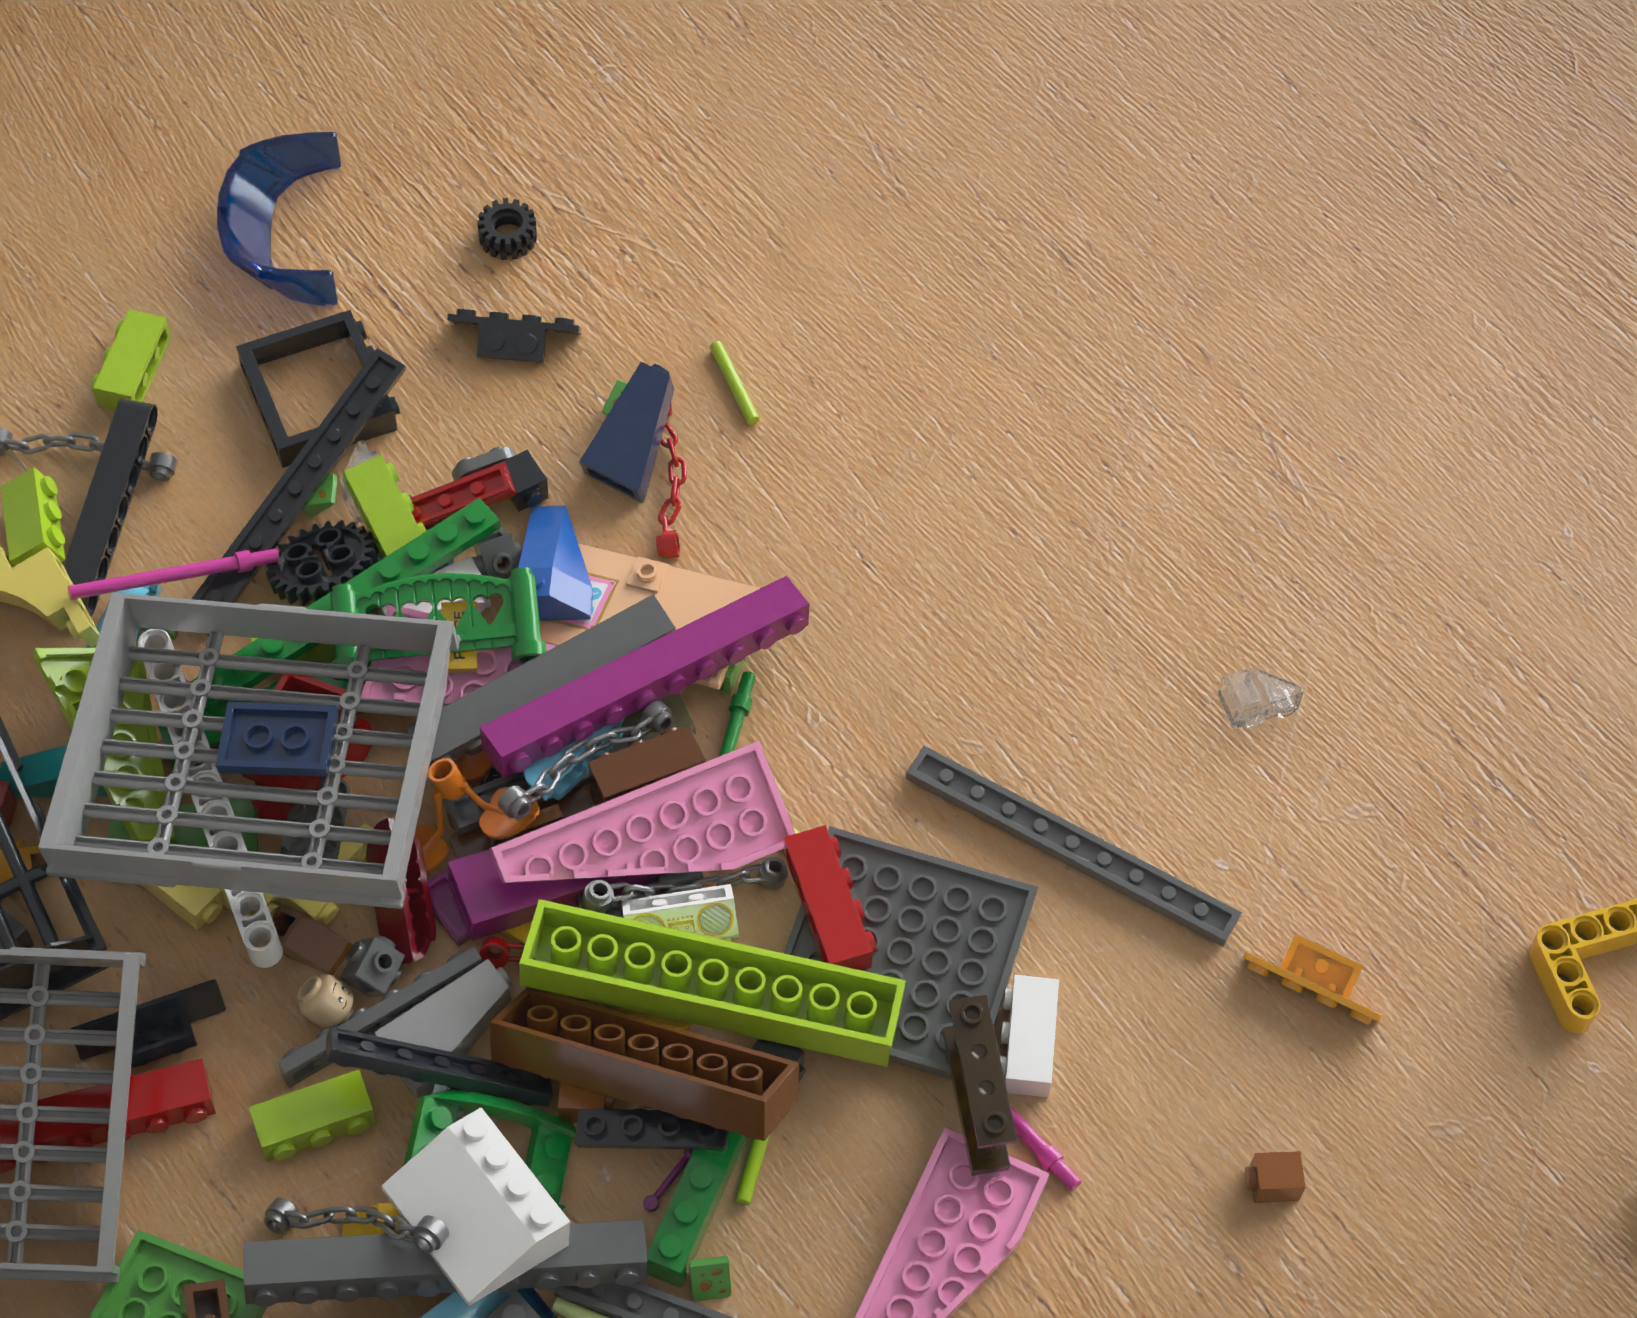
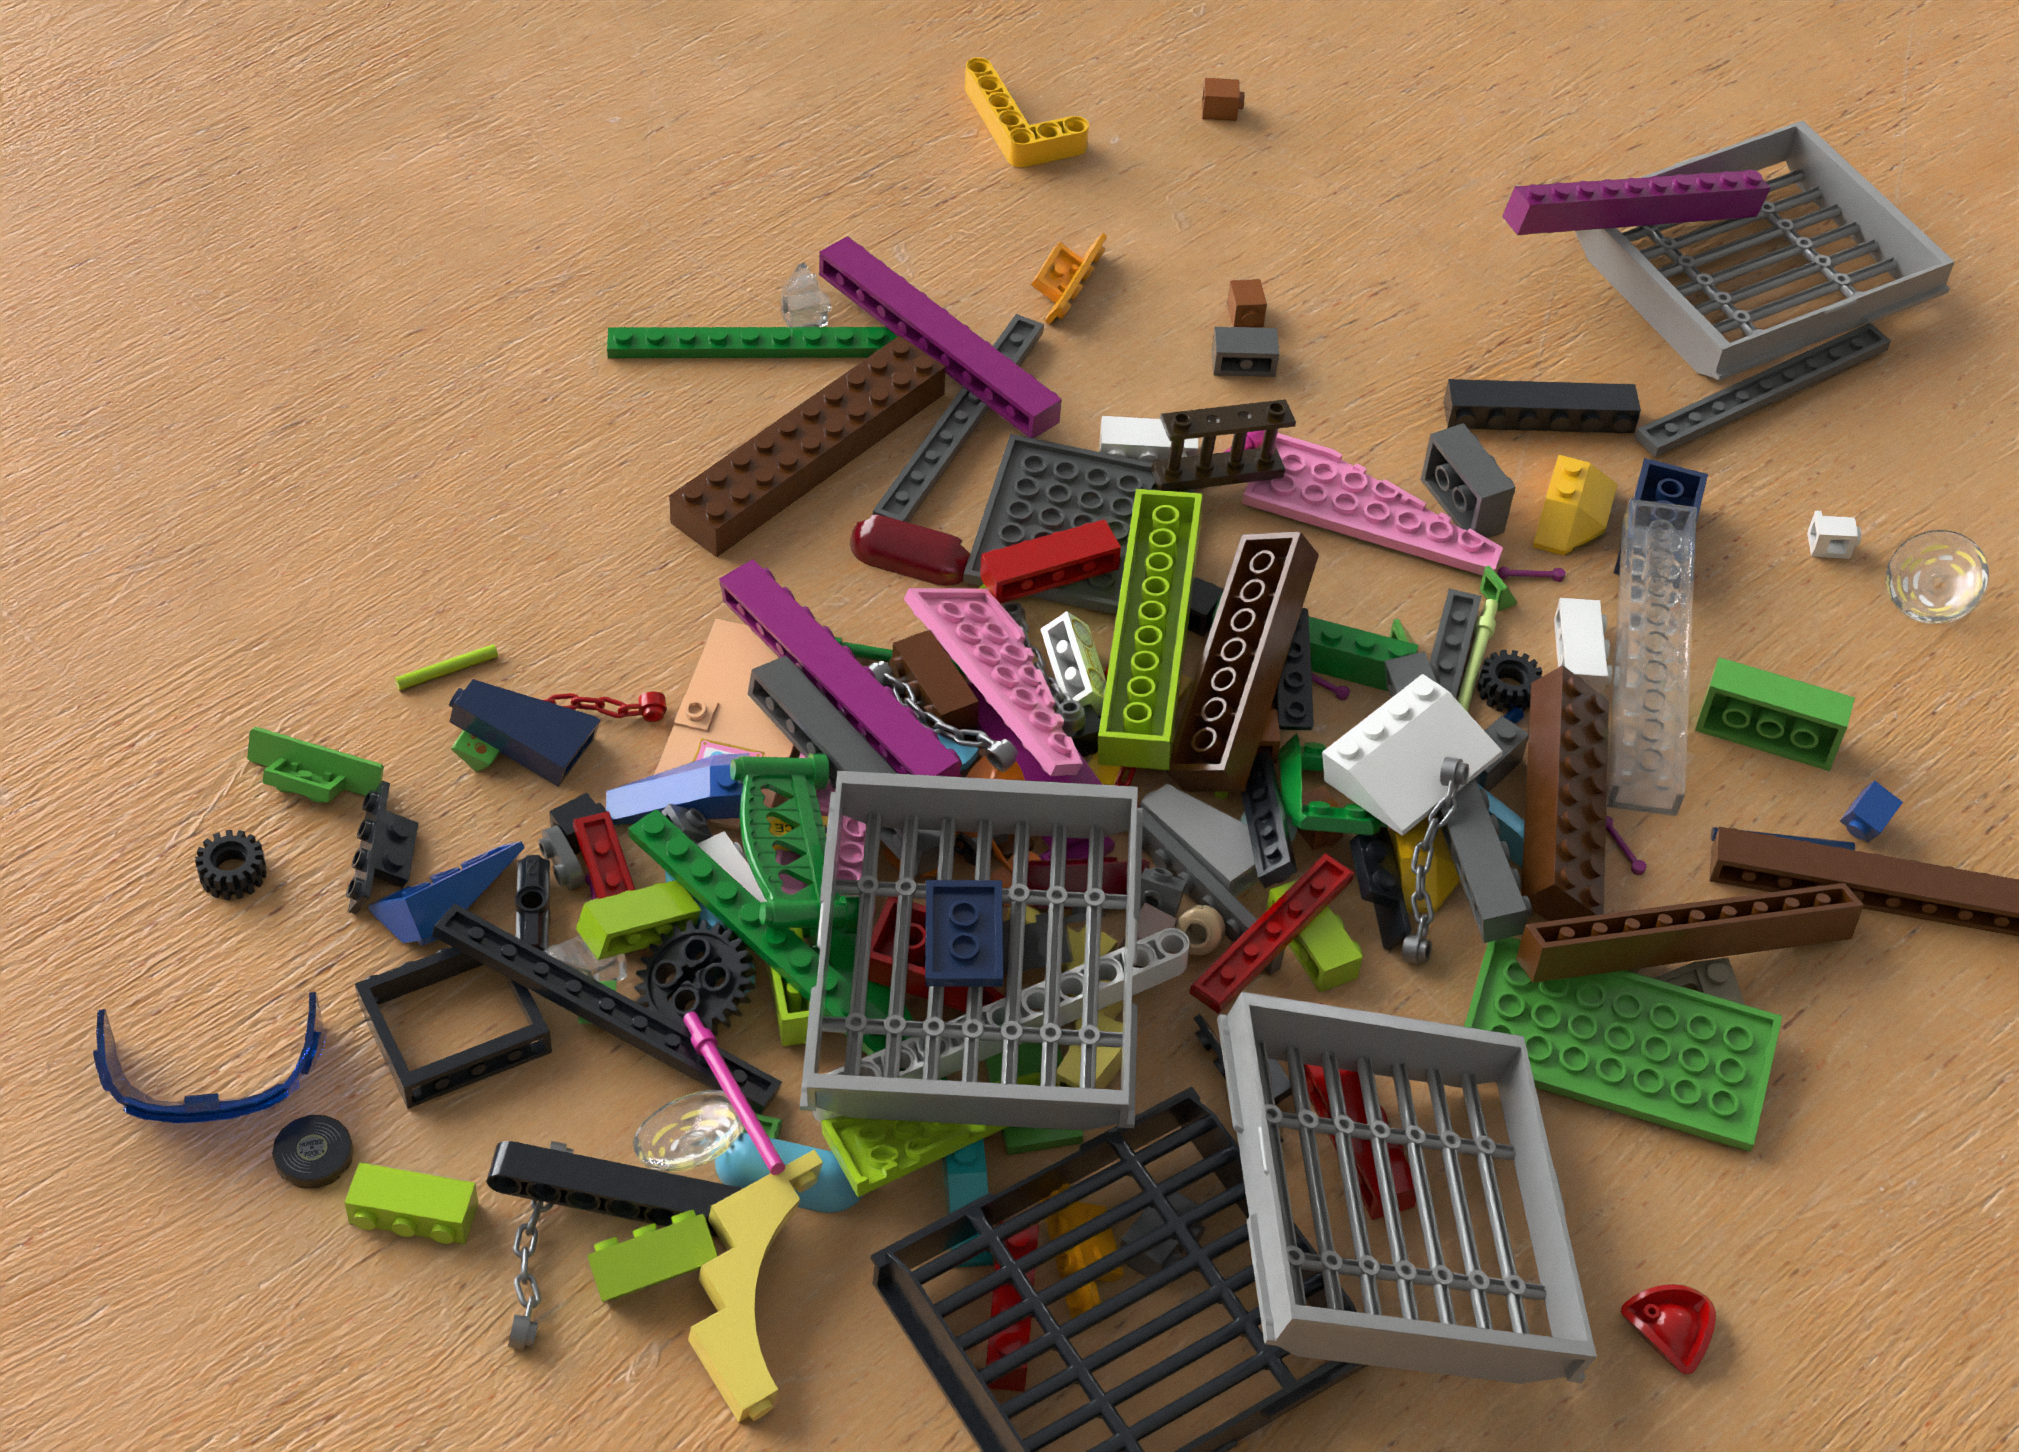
camera: 95 degrees left, 10 degrees down
(155, 543) = (688, 1132): none -> clear dish
(202, 298) = (312, 1151): none -> black tile
(300, 1061) = (1271, 933): none -> red tile
(352, 1182) = (1381, 884): none -> black bracket
(413, 445) = (533, 901): none -> black piece
(445, 368) = (416, 909): none -> blue wedge
(602, 276) = (310, 768): none -> bright green bracket
(871, 781) = (909, 550): none -> dark red brick
(1028, 694) = (806, 446): none -> reddish brown brick
(1181, 819) = (940, 335): none -> magenta brick
(1191, 1163) = (1245, 351): none -> dark grey brick
(1196, 669) = (746, 342): none -> green plate

